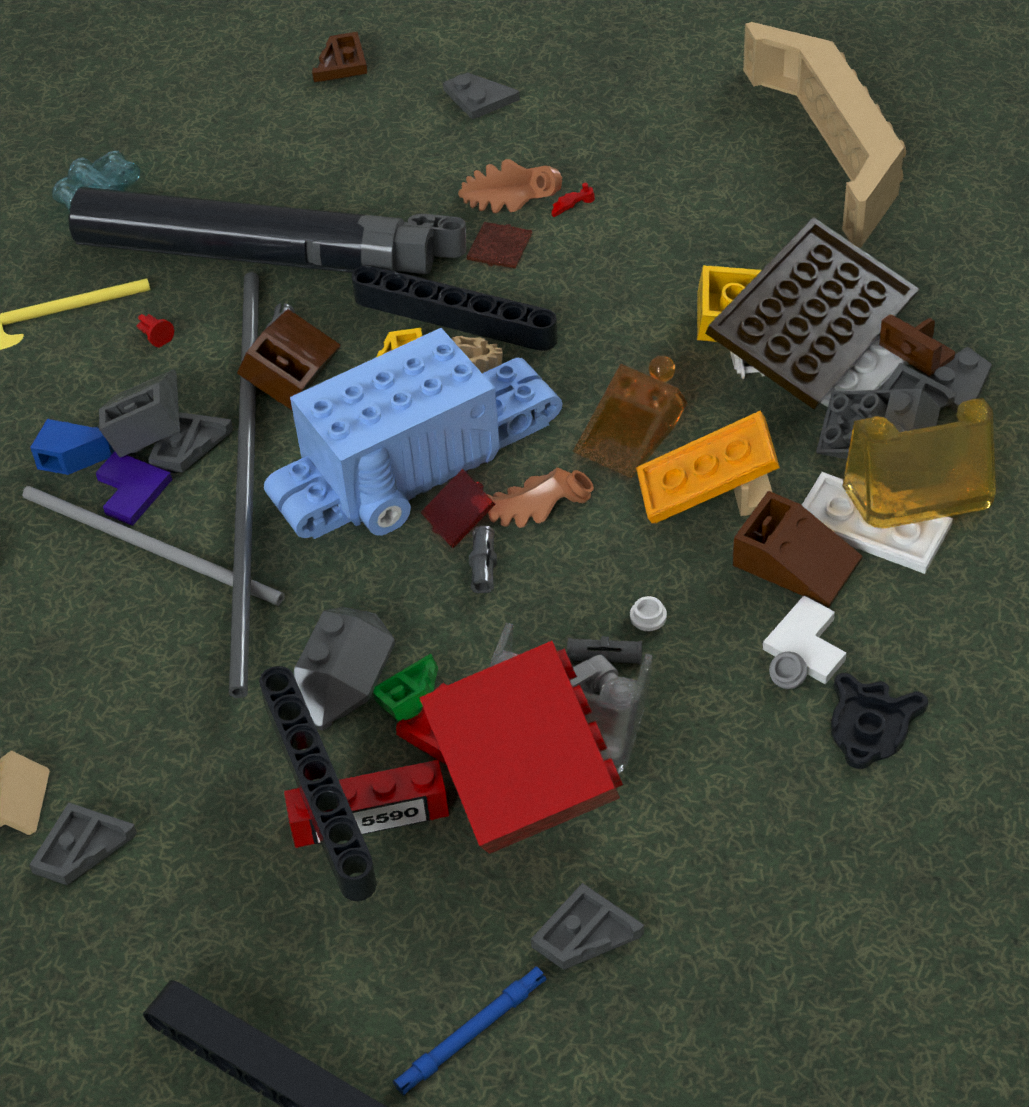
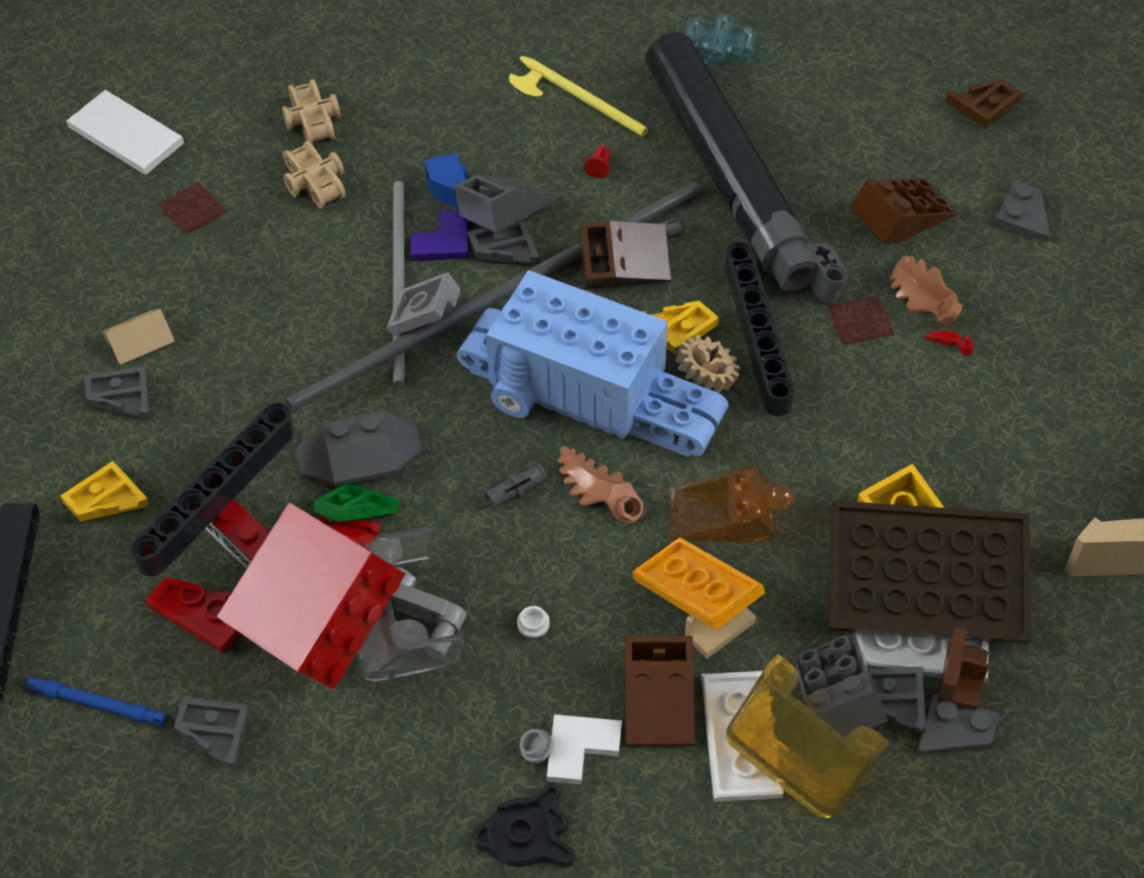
camera: 55 degrees right, 5 degrees up
(207, 913) = (104, 494): none -> yellow wing
(216, 525) = (423, 304): none -> light grey plate
(407, 161) = (900, 208): none -> reddish brown slope
(438, 879) = (194, 611): none -> red wing
(458, 508) = (550, 441): clear red piece -> none
(629, 650) = (476, 611): dark grey pin -> none

